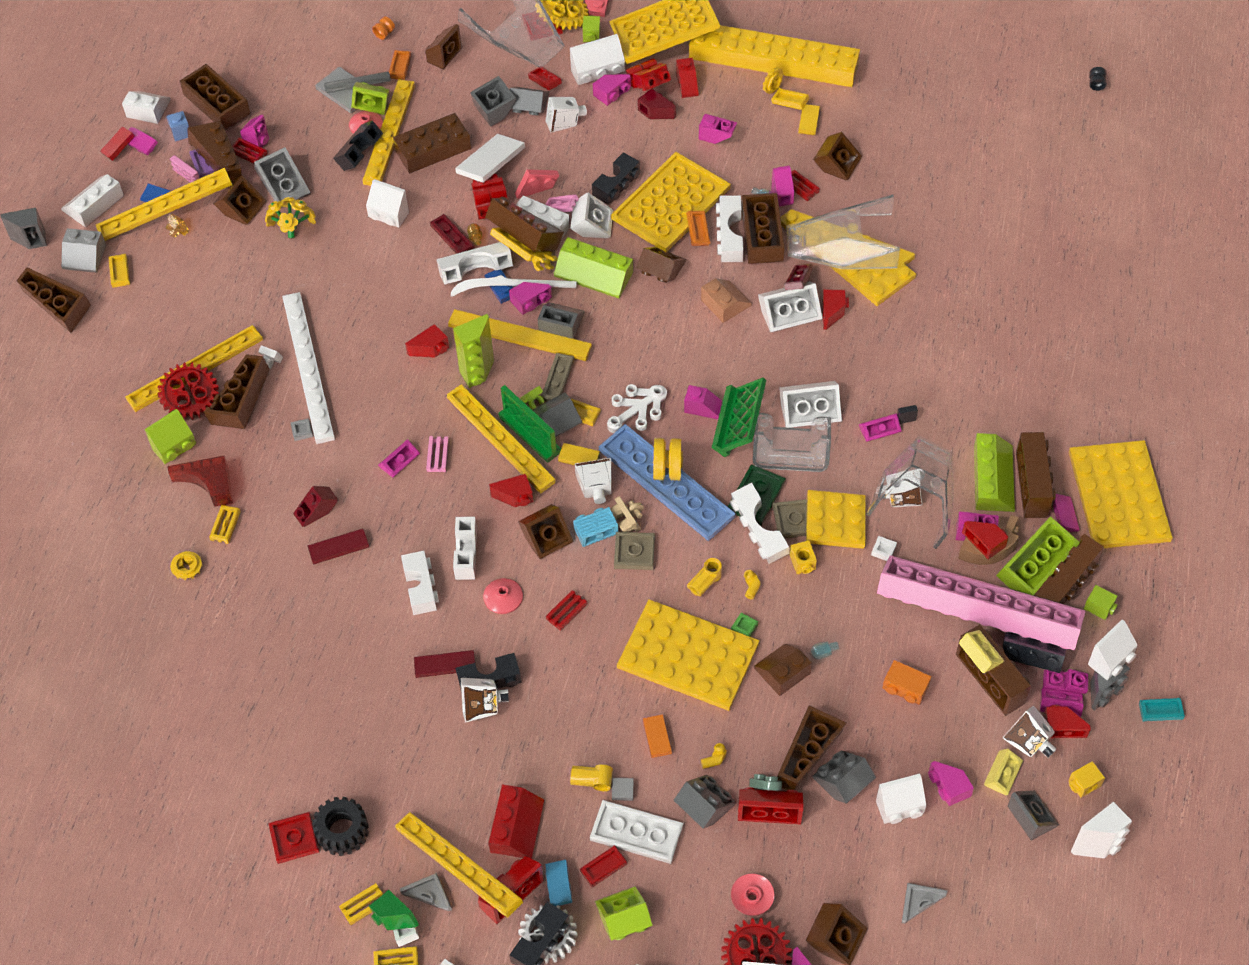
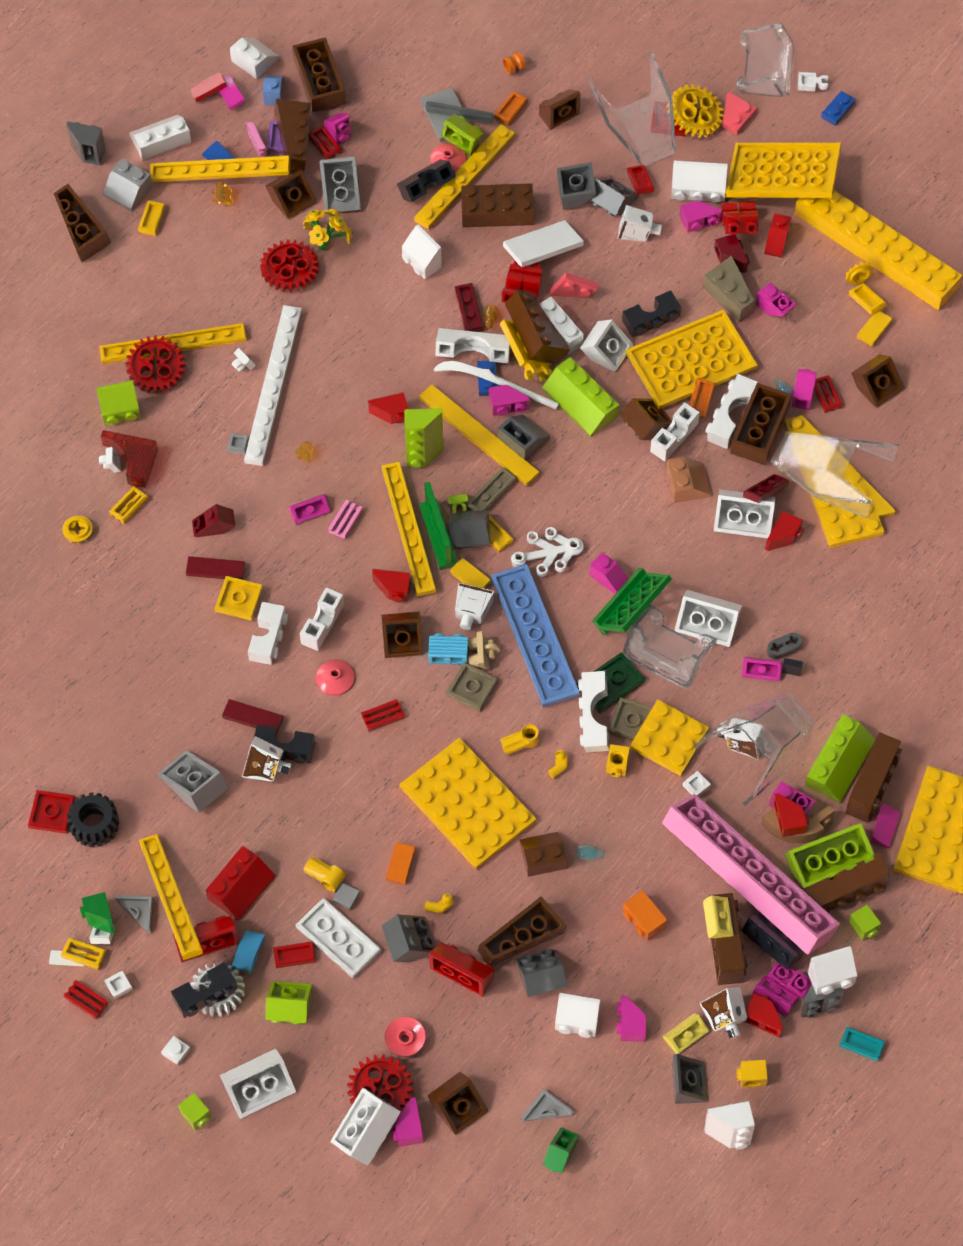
camera: 25 degrees right, 5 degrees up
(187, 491) = (111, 460): none -> white tile
(240, 393) = (198, 387): reddish brown wedge -> none
(270, 261) = (289, 265): none -> red gear
(354, 900) = (78, 887): yellow tile -> none
(369, 411) = (305, 451): none -> clear yellow tile
(374, 563) = (238, 598): none -> yellow plate
(420, 746) = (193, 781): none -> light grey slope
(563, 203) = (581, 321): bright pink tile -> none
(591, 28) = (713, 144): lime brick -> none
(667, 459) = (540, 615): yellow wheel -> none
(672, 134) = (729, 289): none -> dark tan wedge
(693, 264) = (668, 440): none -> white arch
(744, 625) = (531, 799): bright green tile -> none
(765, 782) = (467, 947): sand green plate -> none
(891, 402) = (783, 645): none -> dark grey beam
(957, 933) = (560, 1150): none -> green slope

